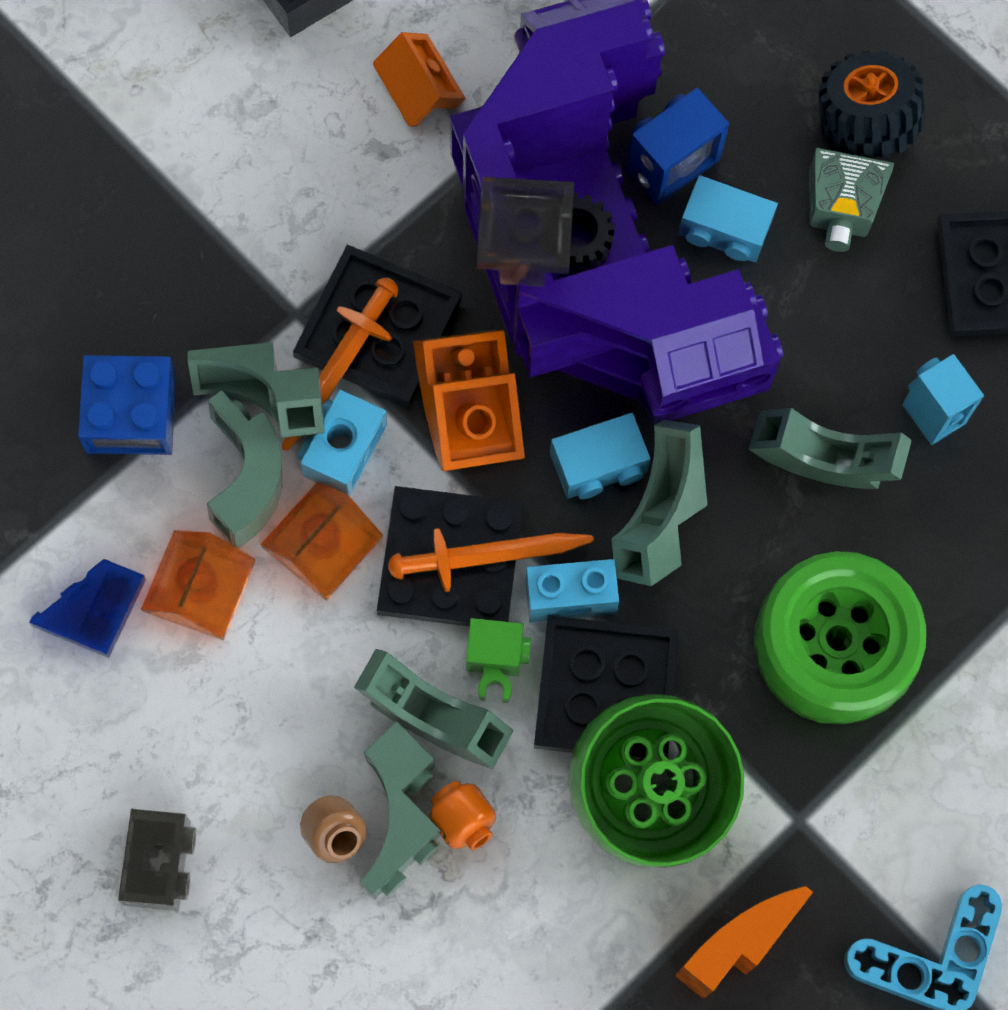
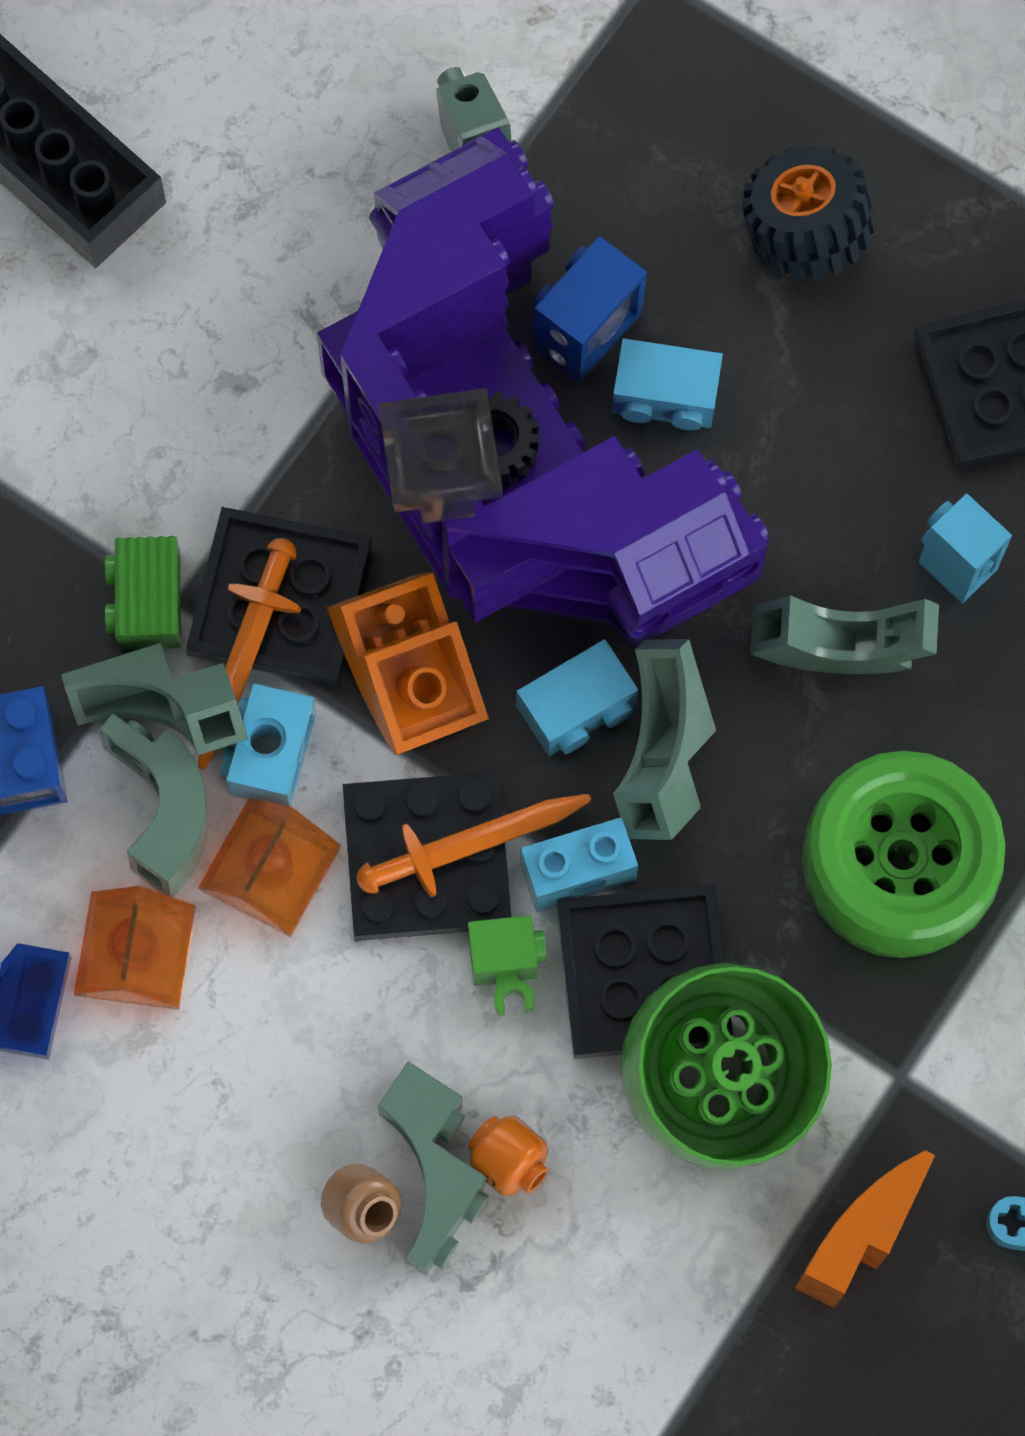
camera: 10 degrees left, 0 degrees up
(146, 836) = (143, 1257): clear smoke brick -> none
(271, 300) = (145, 592): none -> bright green brick
(417, 77) = (259, 287): orange panel -> none
(431, 713) = (448, 1044): sand green arch -> none
(845, 195) = (799, 326): sand green torso -> none

